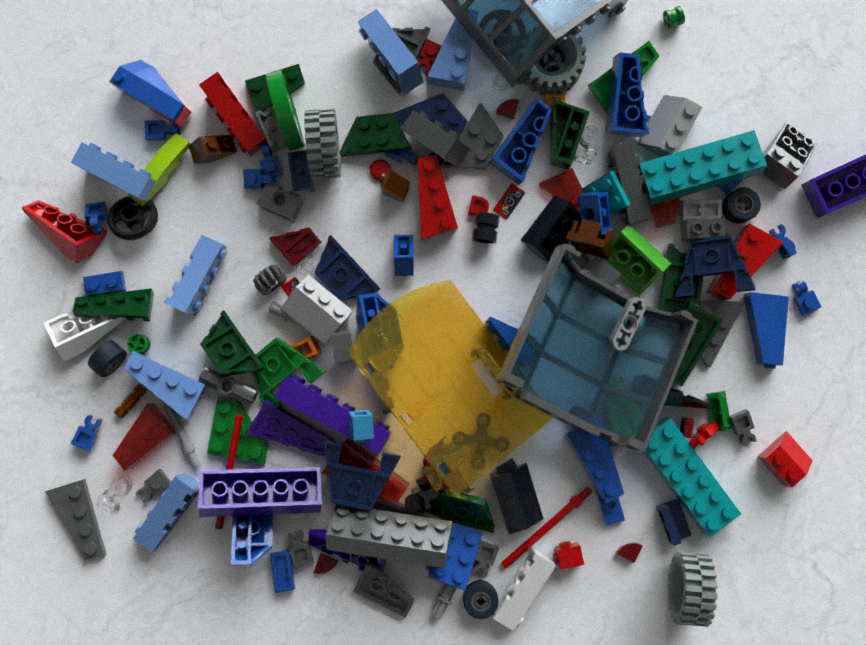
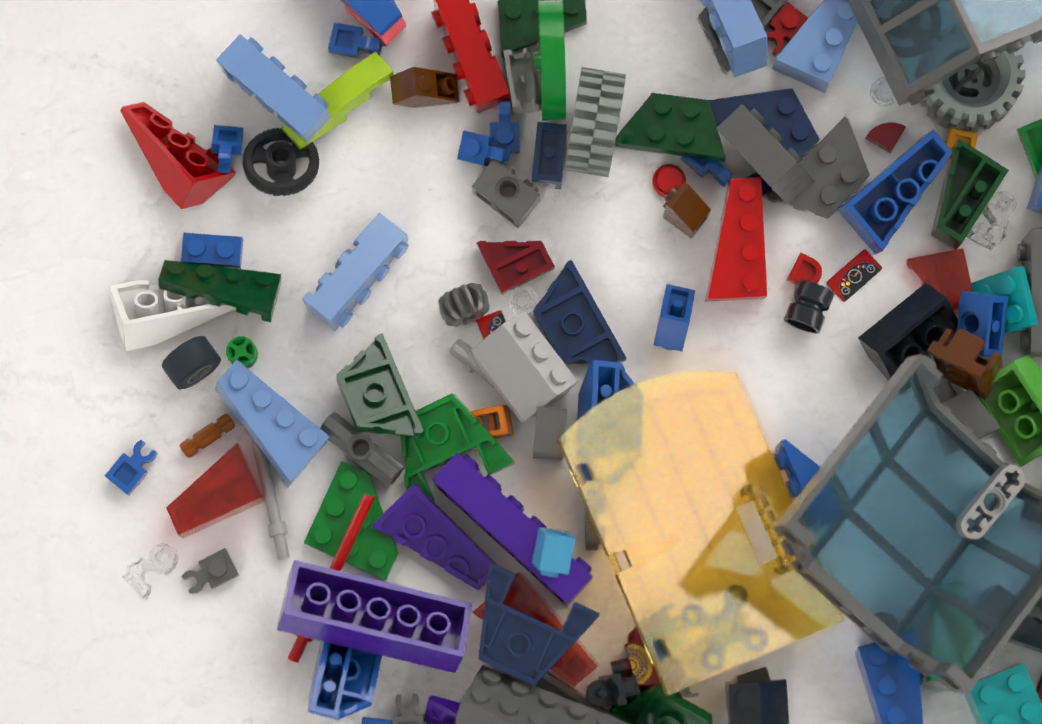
camera: 20 degrees right, 5 degrees down
(78, 515) = (85, 581): dark grey wing -> none
(167, 512) = (224, 614): medium blue wedge -> none

